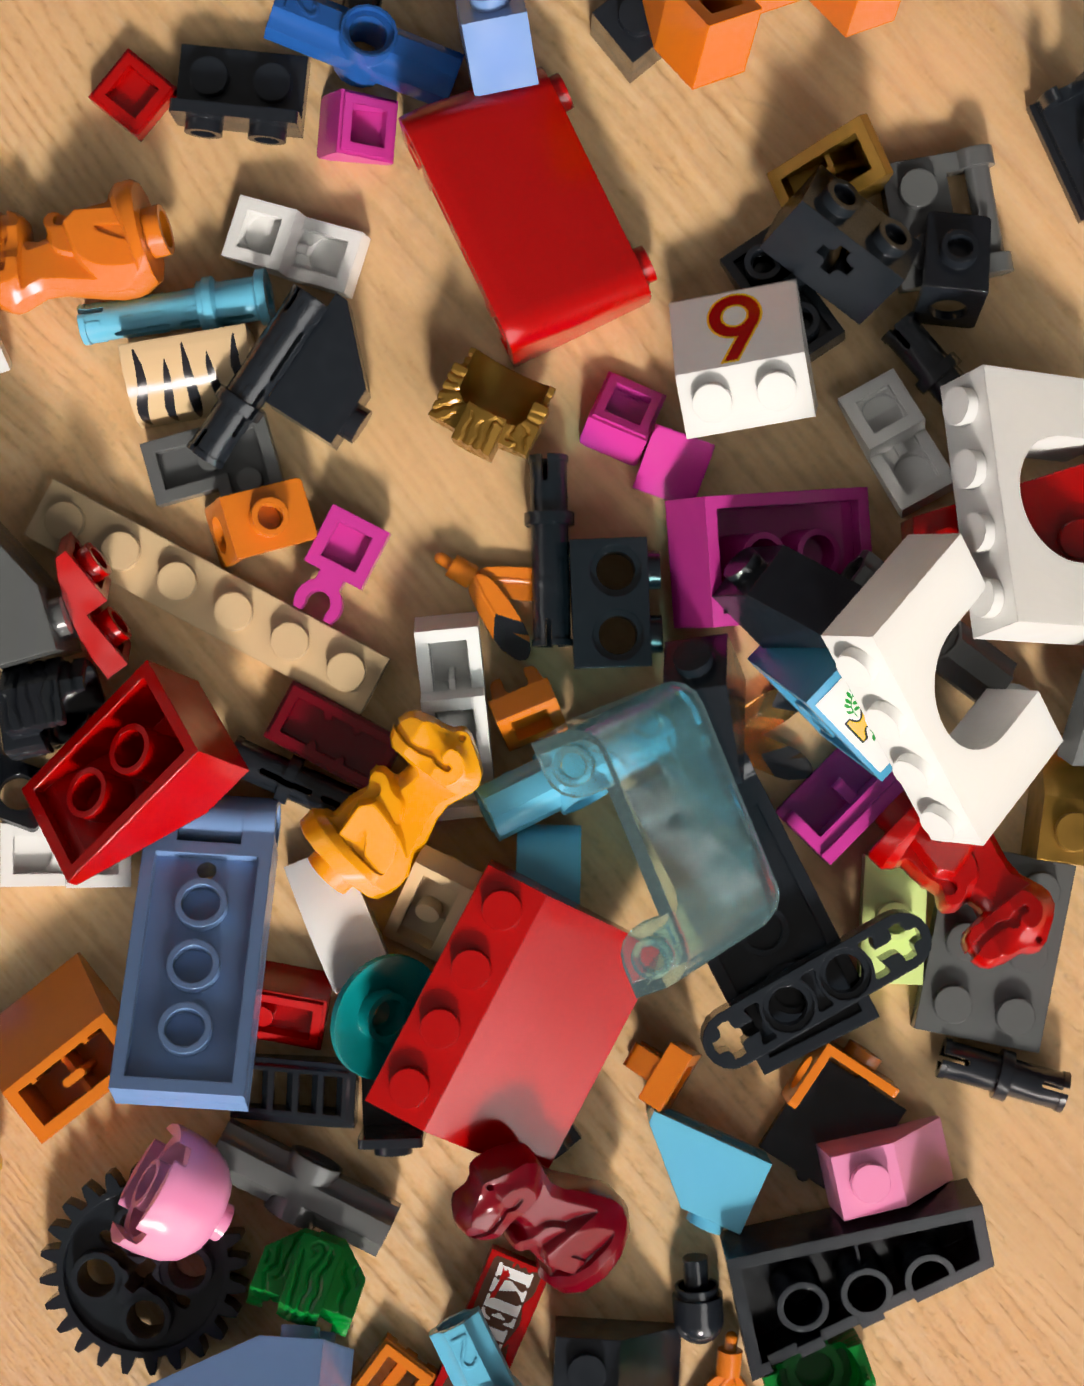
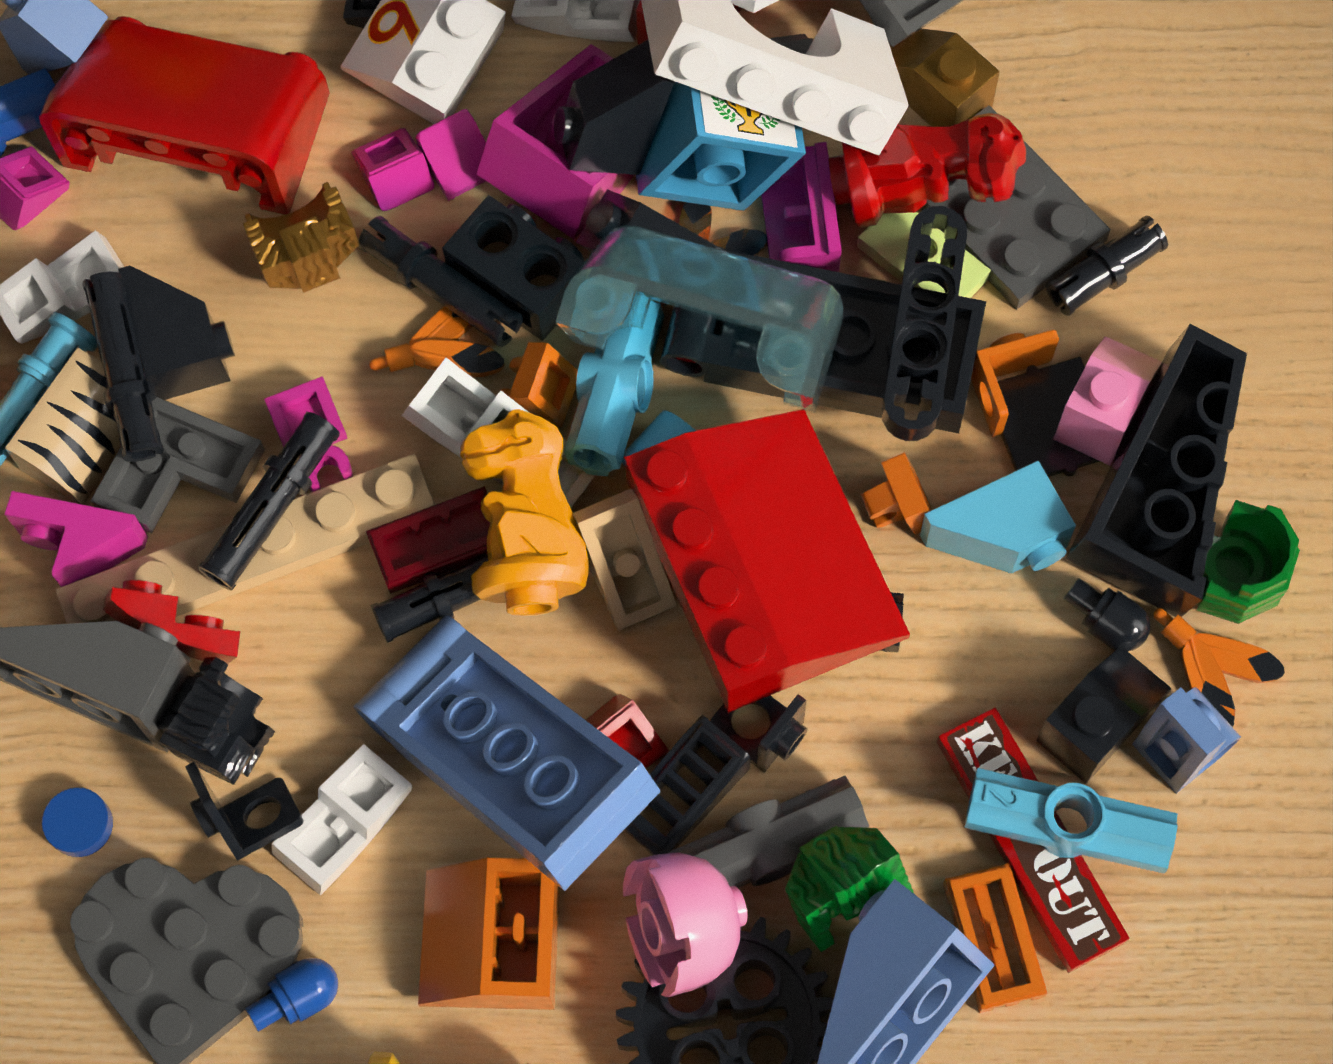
camera: 50 degrees left, 20 degrees down
(114, 466) = (87, 535): none -> dark pink slope
(133, 772) = (324, 693): red slope -> none
(174, 602) = (309, 441): none -> black pin
(260, 521) = (224, 460): orange bracket -> none
(338, 923) = (581, 646): white slope -> none
(384, 983) = (672, 665): teal dish -> none
(563, 1218) = (952, 644): dark red animal -> none

